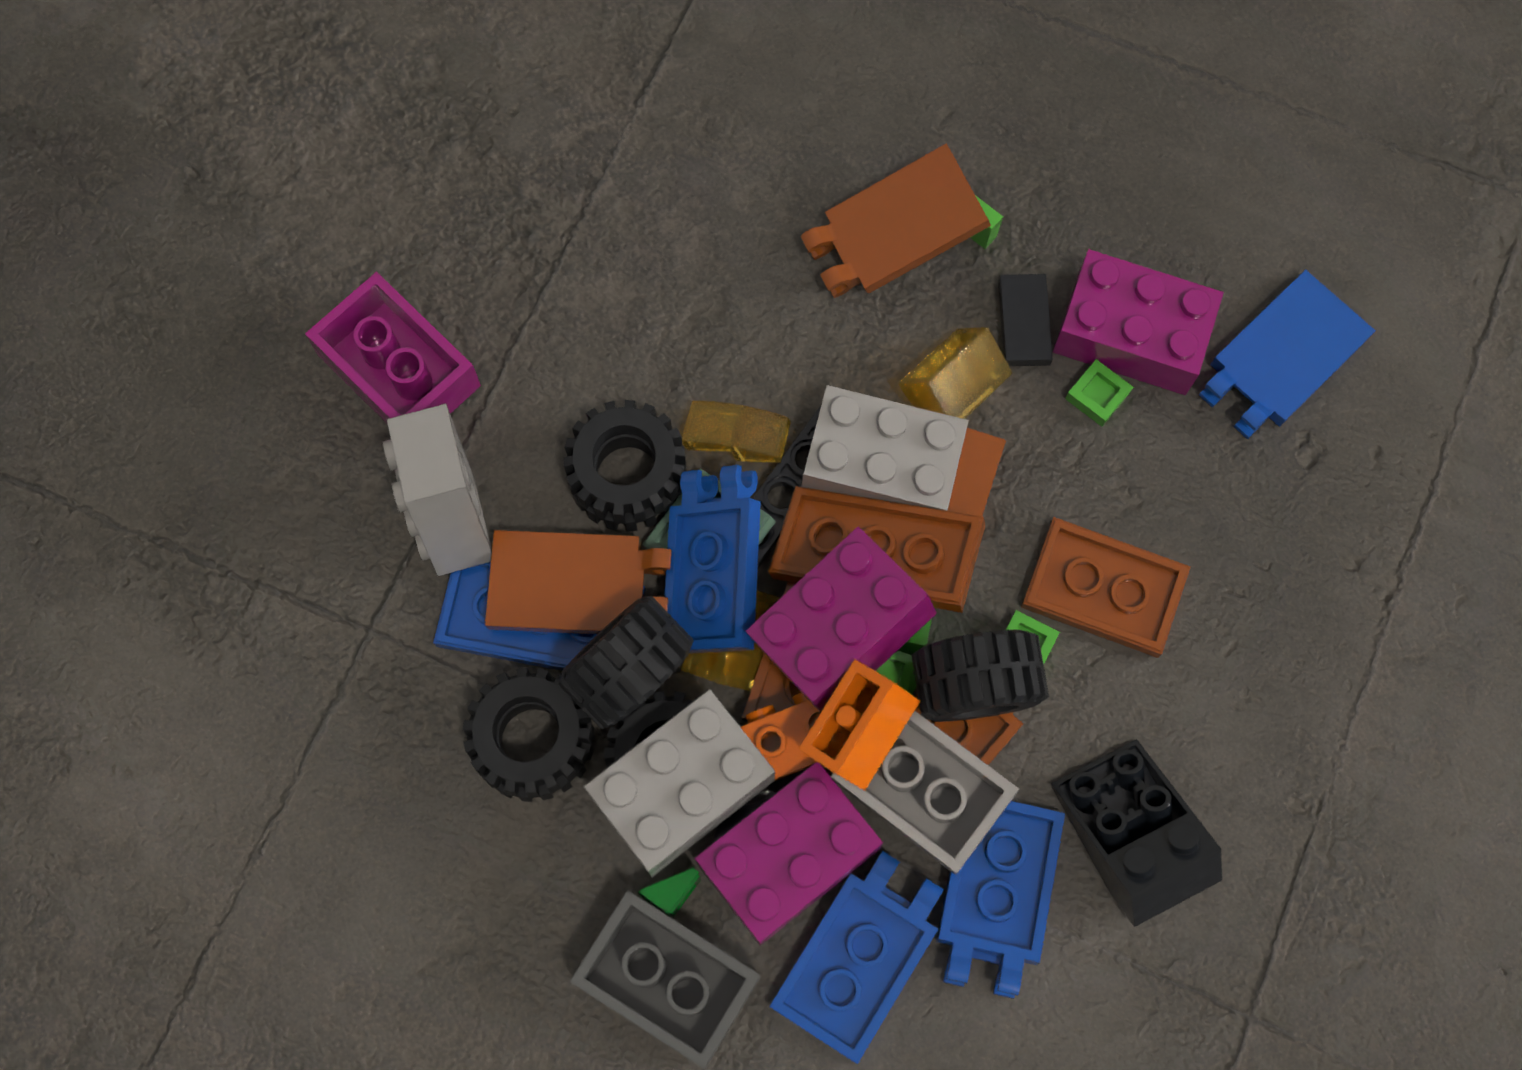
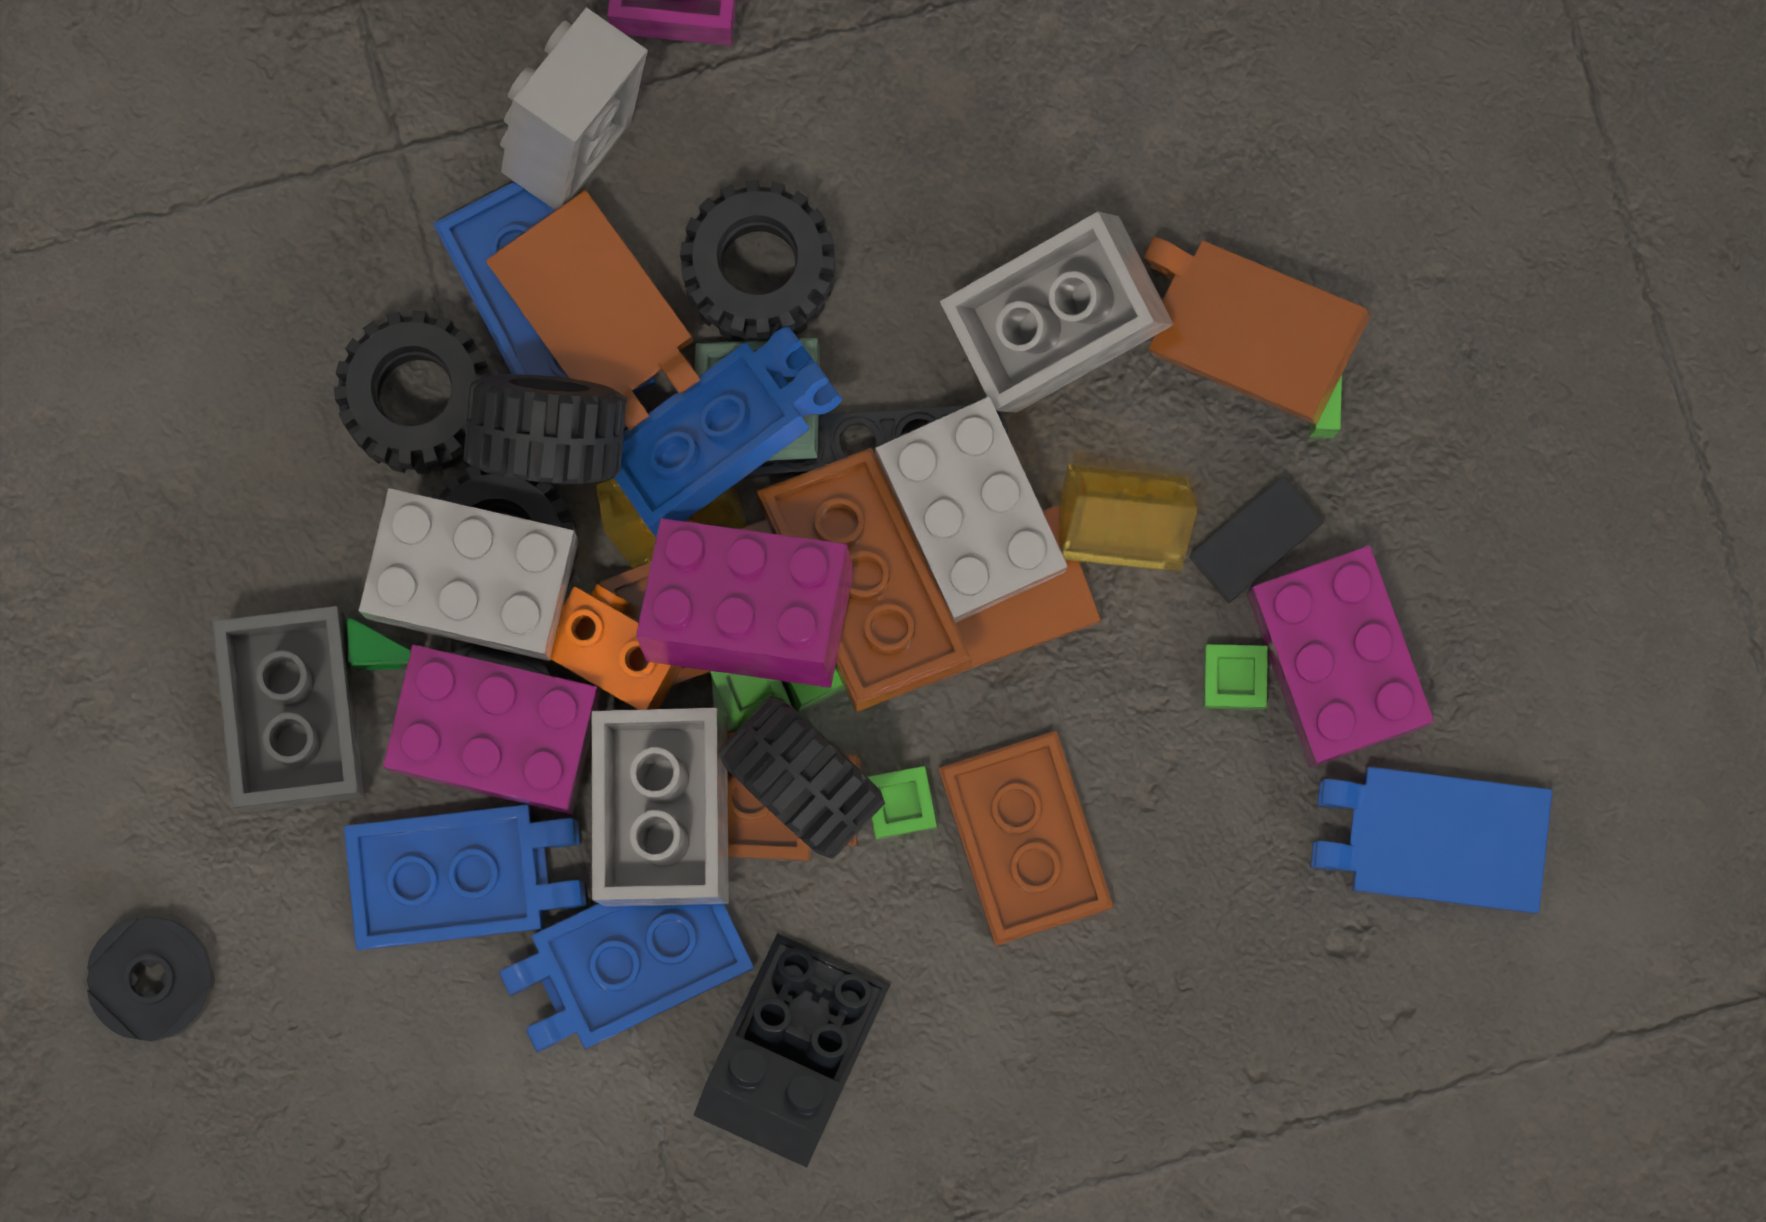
camera: 50 degrees right, 10 degrees up
(739, 429) = (888, 341): clear yellow slope -> none
(803, 313) = (1056, 312): none -> light grey brick
(859, 724) = (650, 697): orange brick -> none

